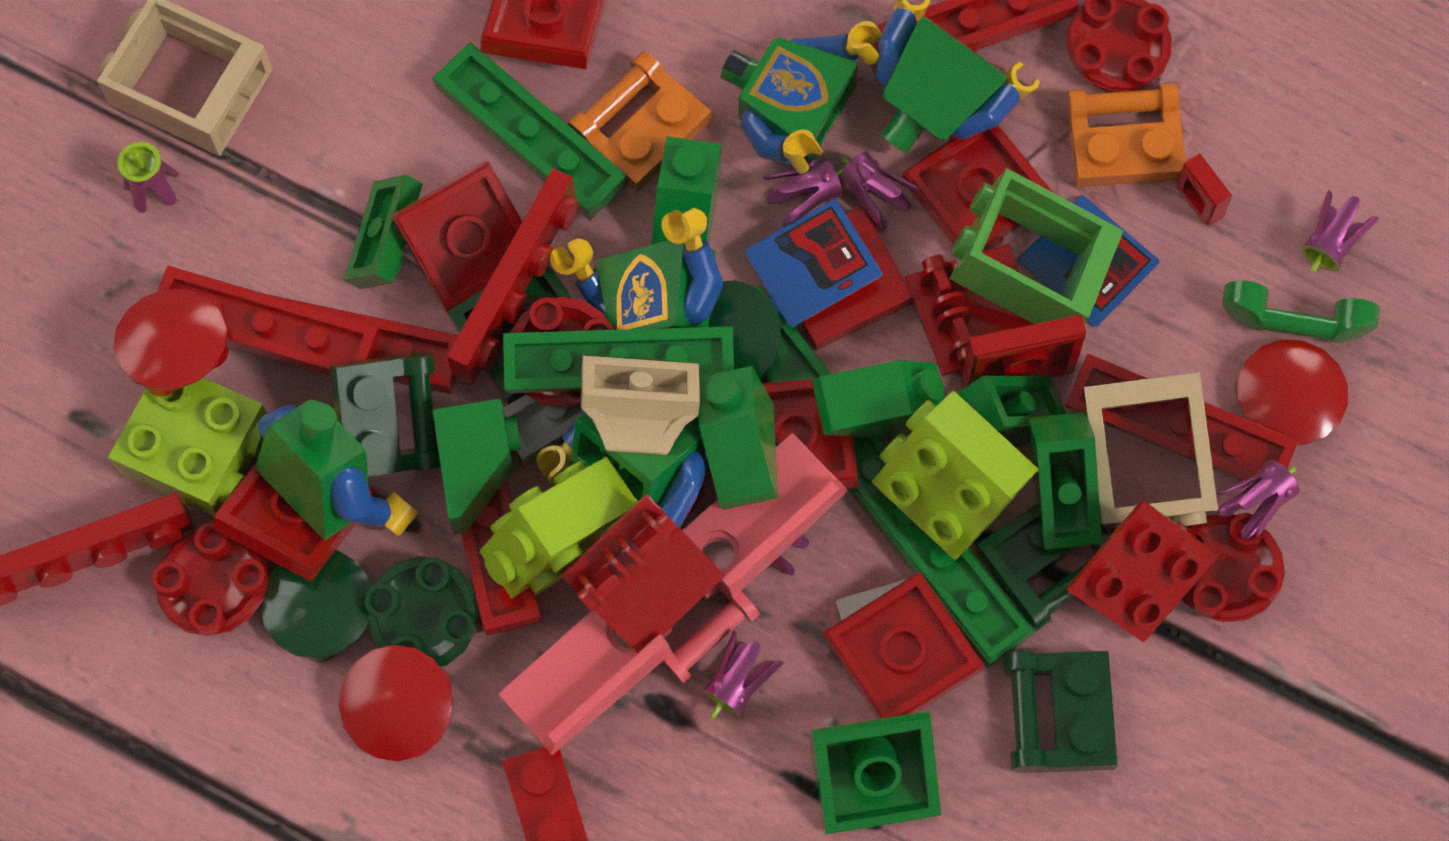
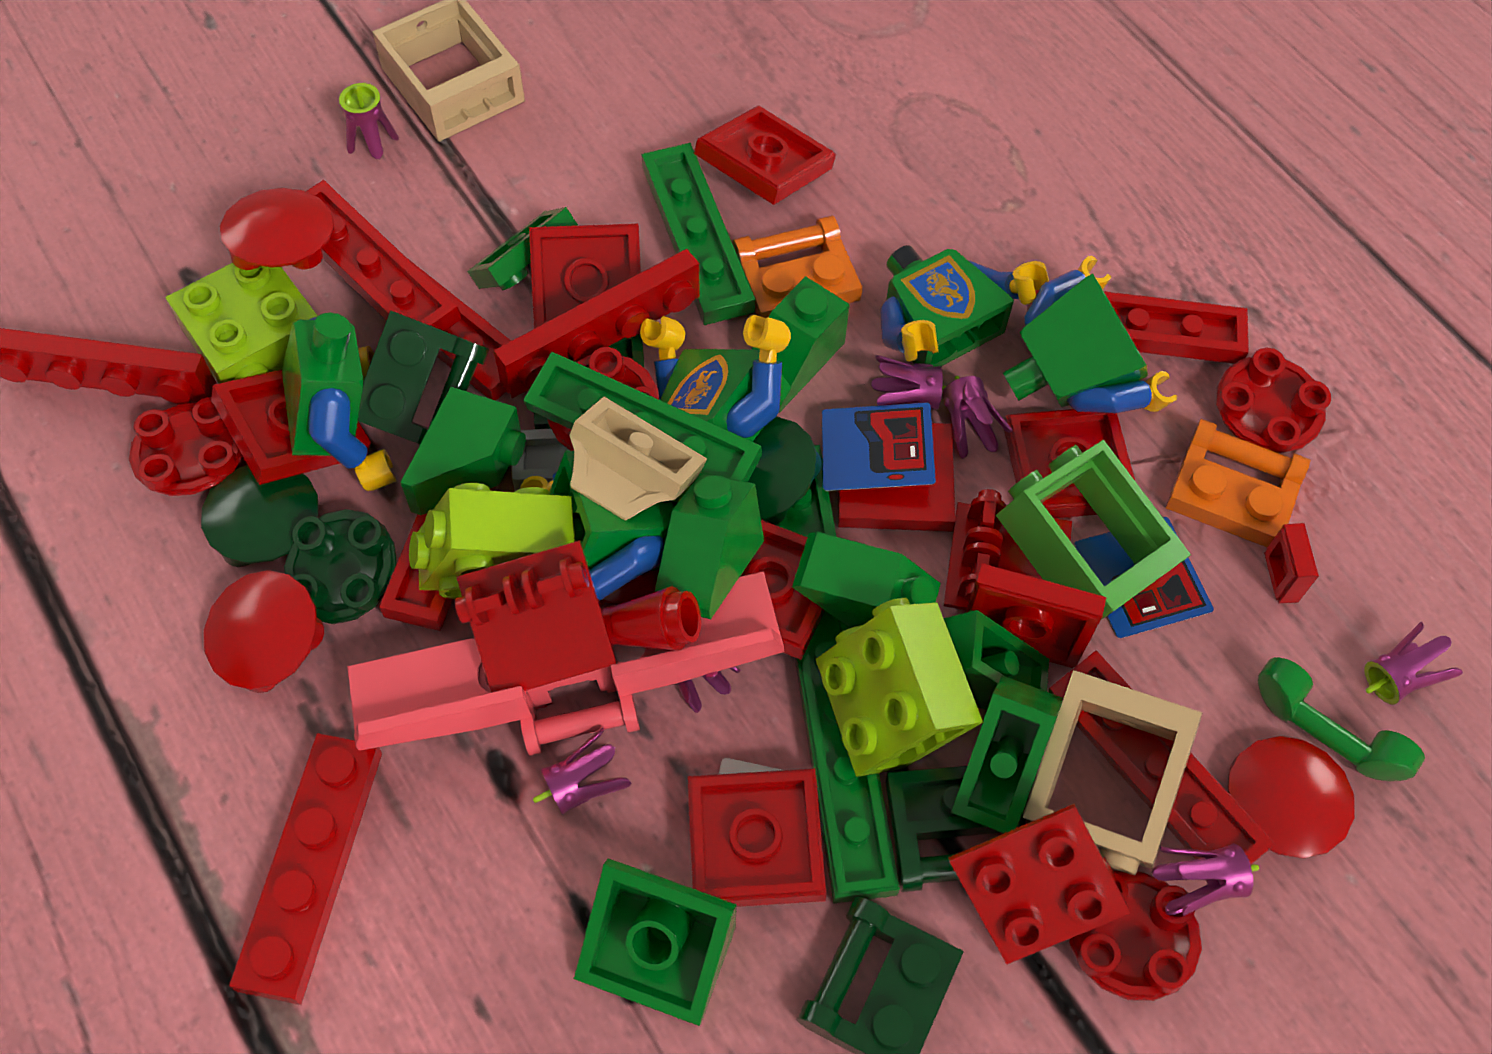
camera: 25 degrees right, 10 degrees down
(737, 524) = (656, 620): none -> red cone

